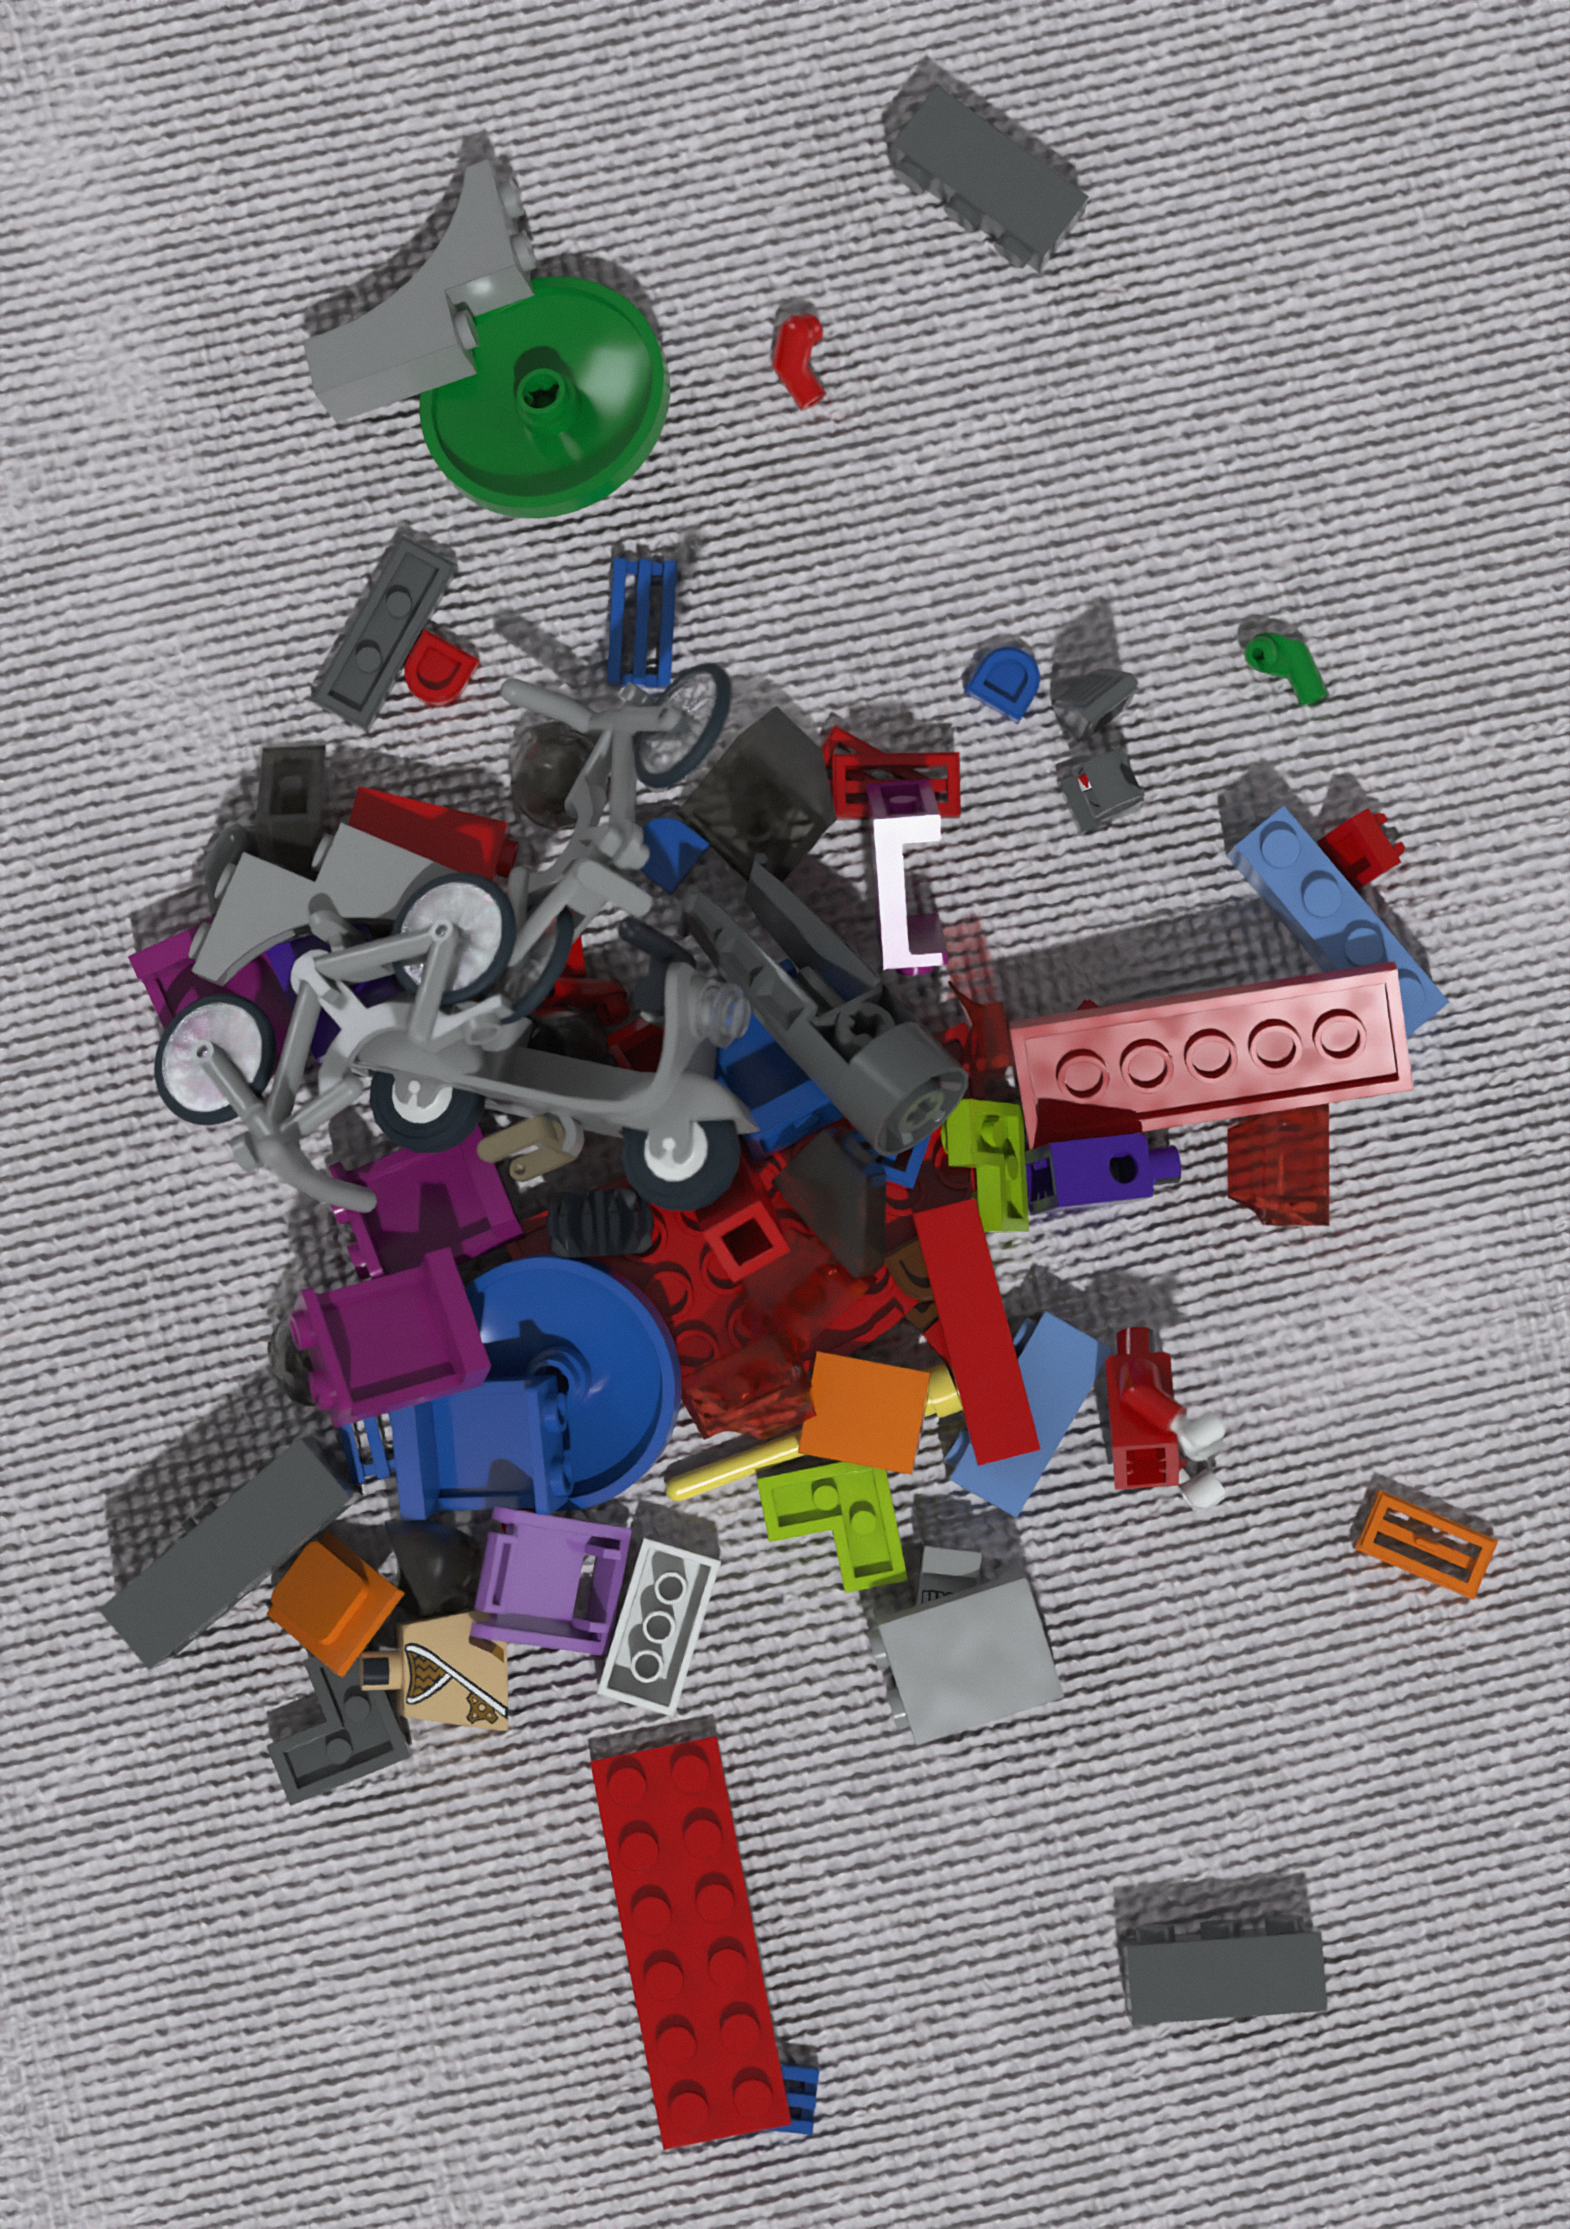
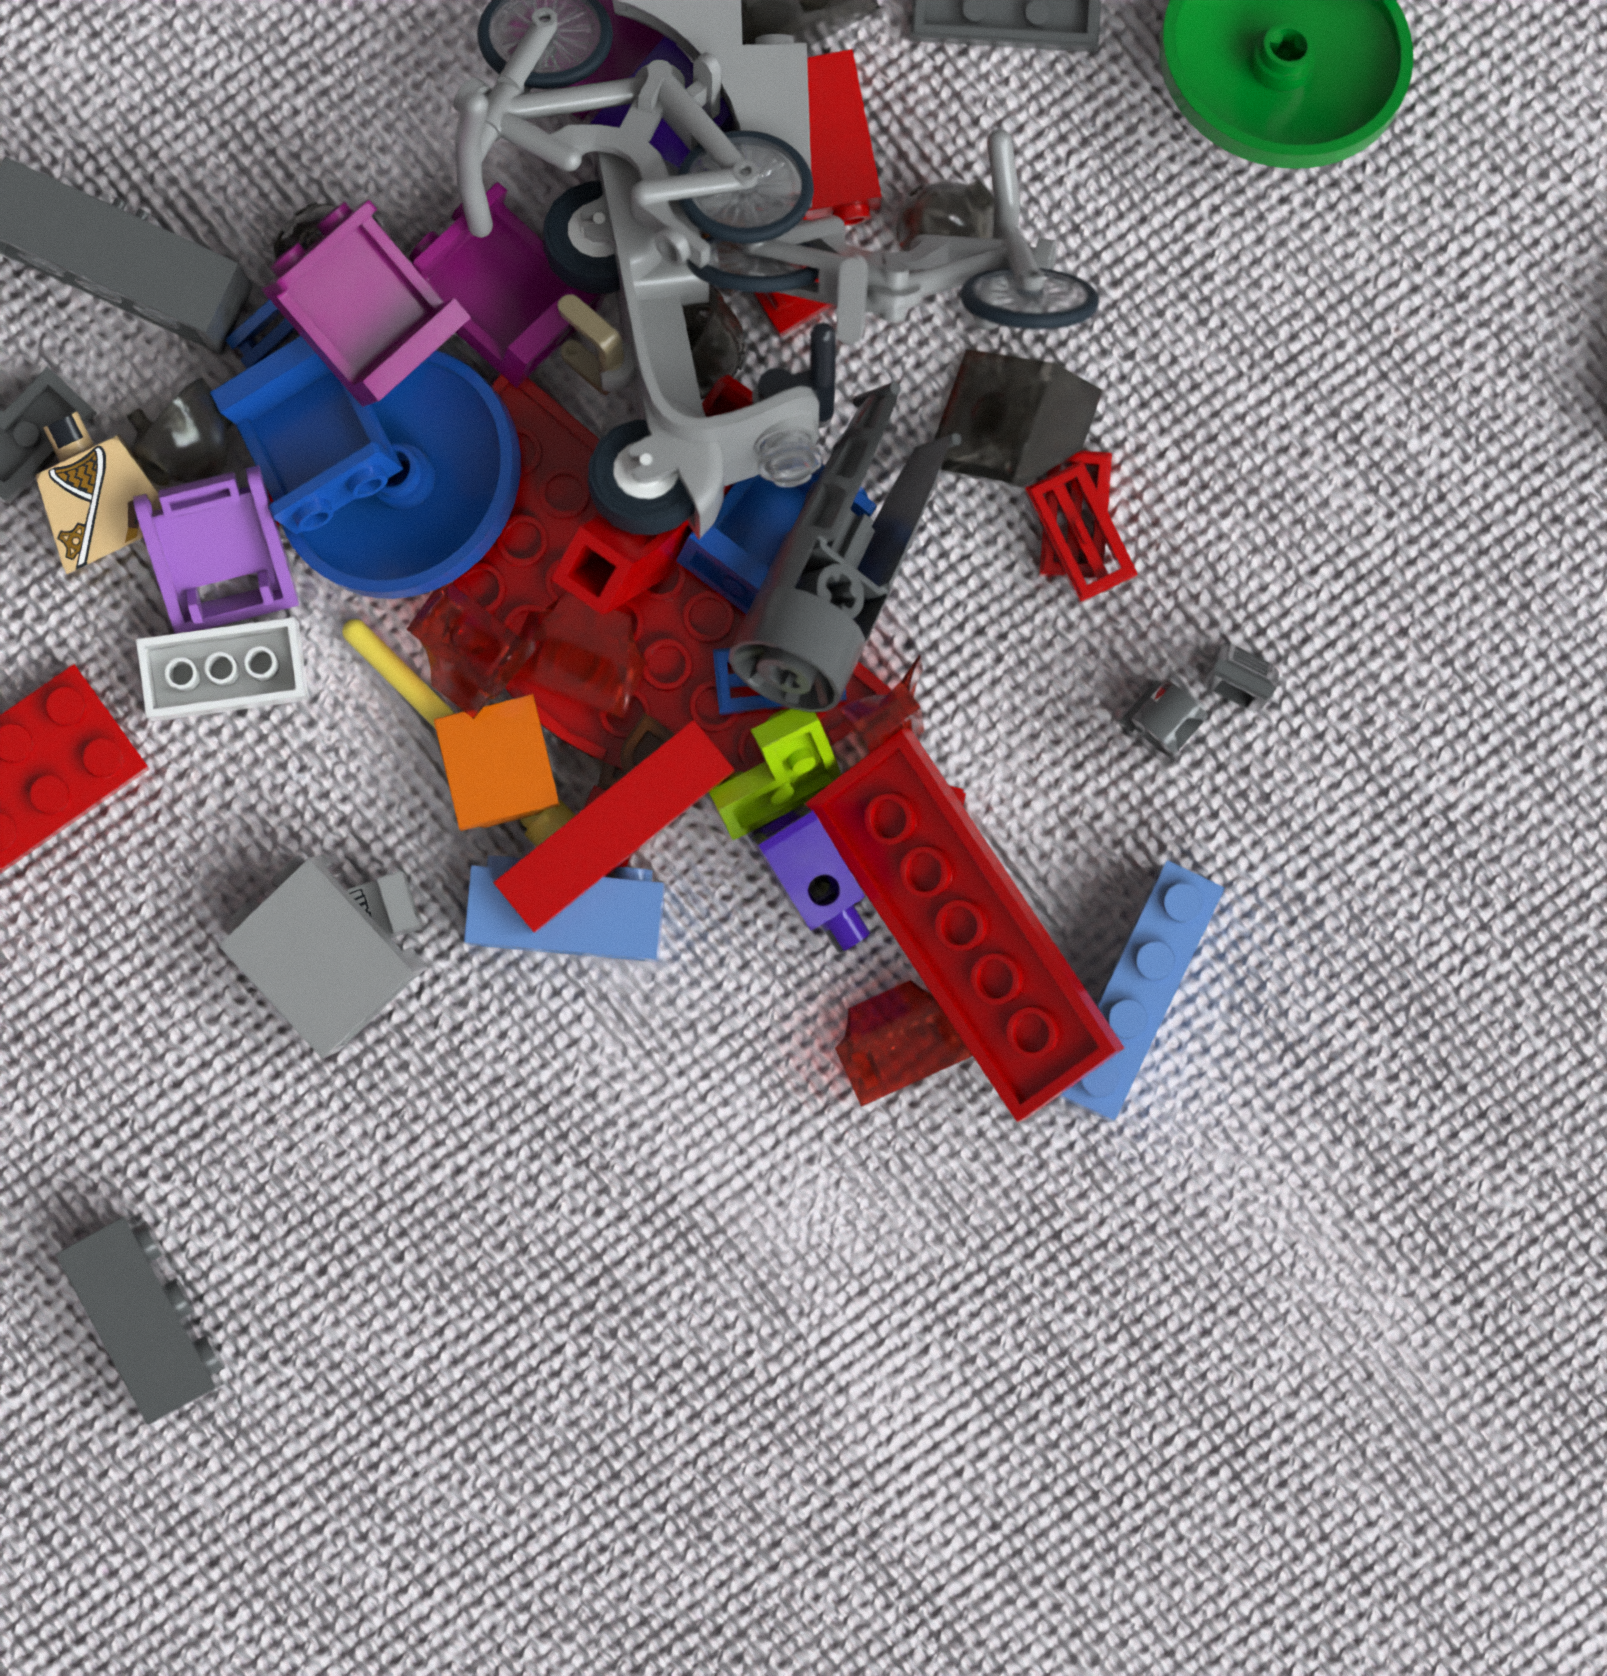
camera: 70 degrees right, 0 degrees up
(333, 1602) = (111, 368): orange piece -> none
(438, 670) = (994, 76): red tile -> none
(593, 995) = (759, 337): red arm -> none
(599, 1223) = (553, 441): black gear -> none
(644, 570) = (1172, 218): blue tile -> none
(672, 853) = (925, 357): blue tile -> none
(791, 358) = (1433, 259): red arm -> none
(840, 1197) = (676, 649): clear smoke slope -> none
(852, 1504) = (410, 791): lime plate -> none
(899, 815) = (1045, 537): panel -> none
(1006, 682) = (1225, 591): blue tile -> none
(1150, 1422) = (599, 1017): red torso -> none
(1288, 660) = (1367, 838): green arm -> none
(1361, 849) = (1221, 981): red tile -> none
(1375, 1523) = (615, 1386): orange tile -> none

